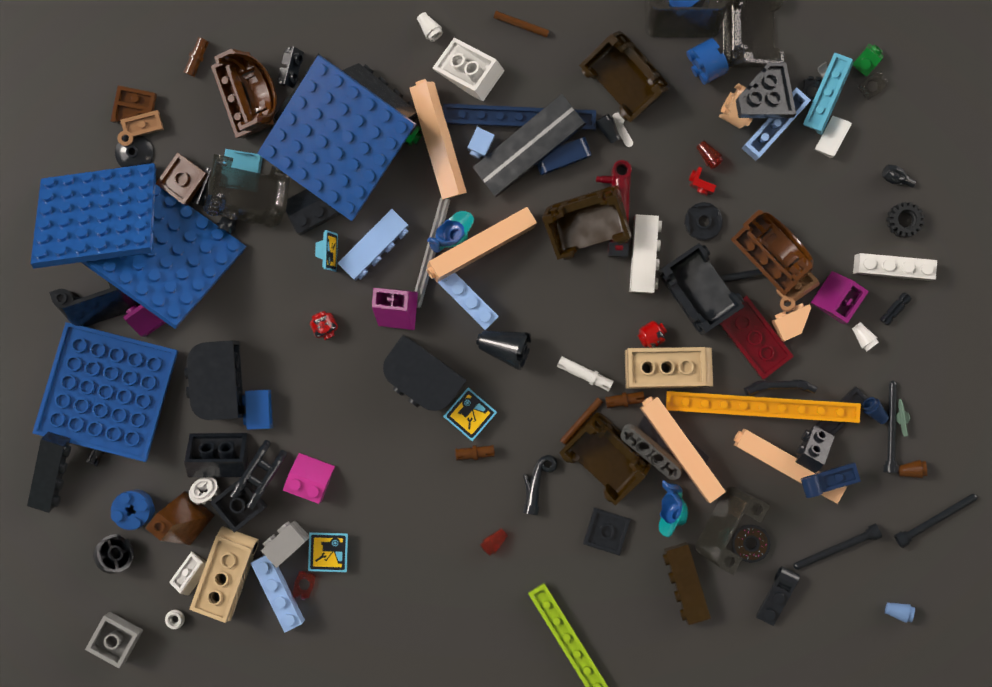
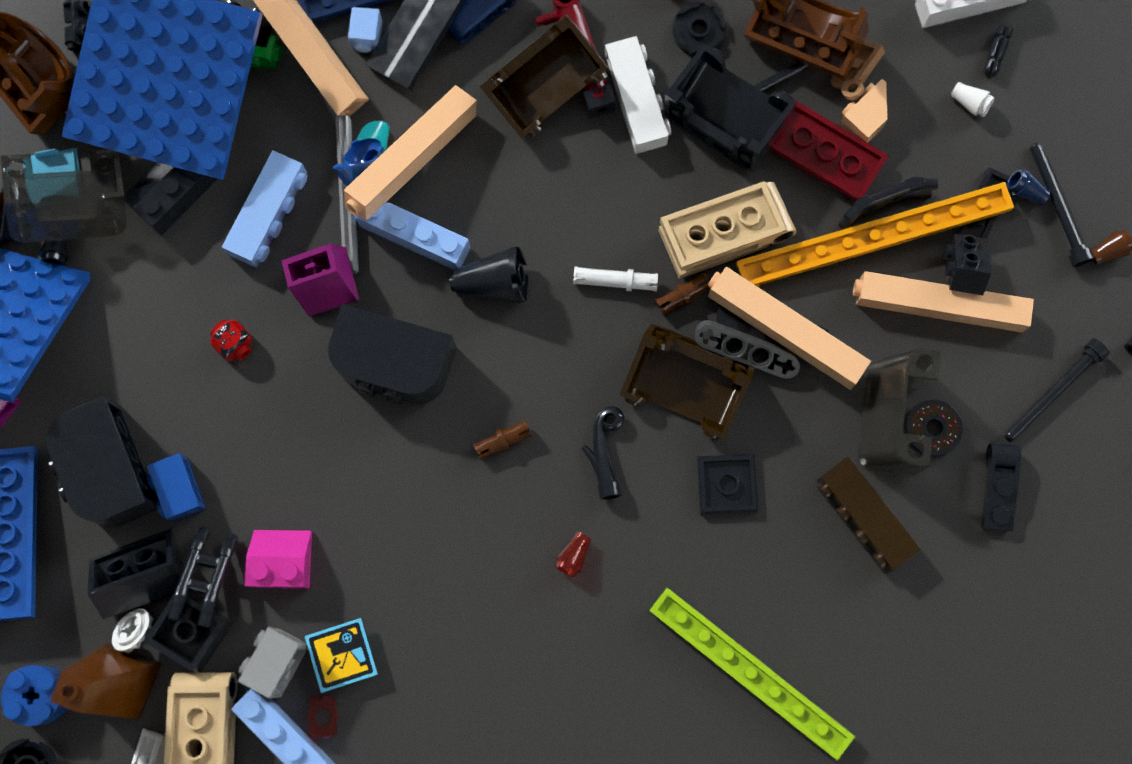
camera: 20 degrees left, 10 degrees down
(327, 250) = (202, 231): piece -> none
(470, 414) = (476, 388): piece -> none
(581, 421) = (641, 328): reddish brown bar -> none
(652, 334) = (687, 192): red head -> none
(674, 509) = (808, 417): blue hair -> none
(830, 479) = (1008, 294): dark blue plate -> none
(839, 297) = (918, 58): magenta slope -> none
(902, 417) = (1068, 185): sand green piece -> none

